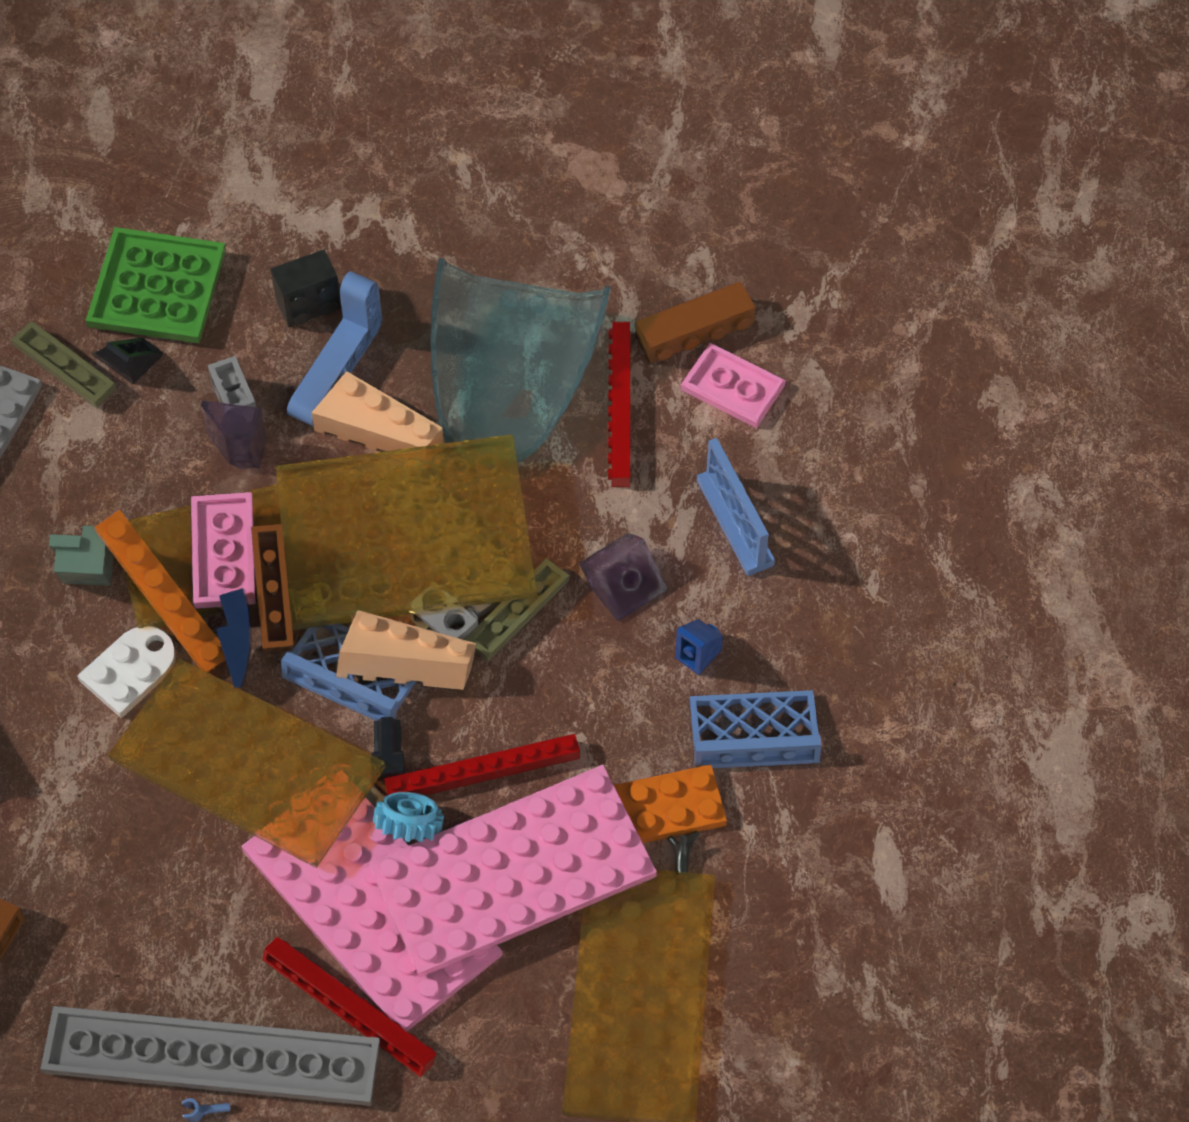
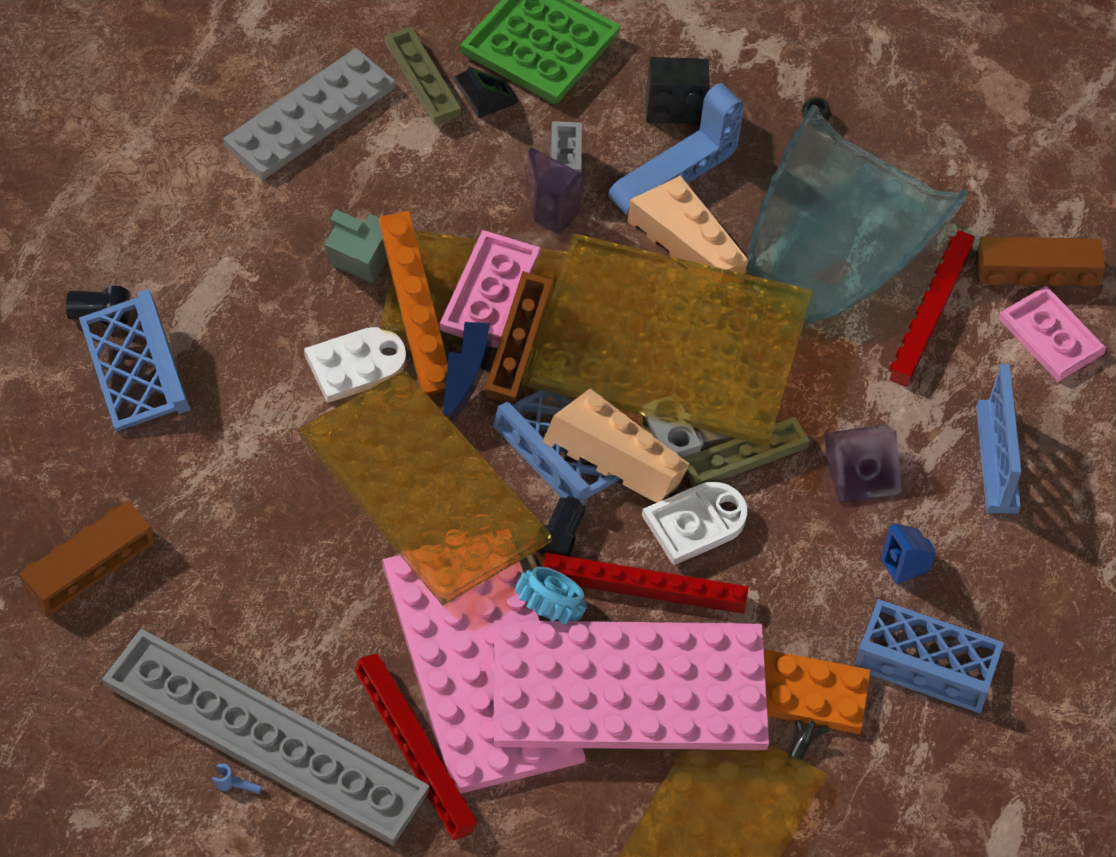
camera: 20 degrees right, 5 degrees down
(434, 252) = (819, 102): none -> pearl dark grey plate
(500, 692) = (695, 521): none -> white plate

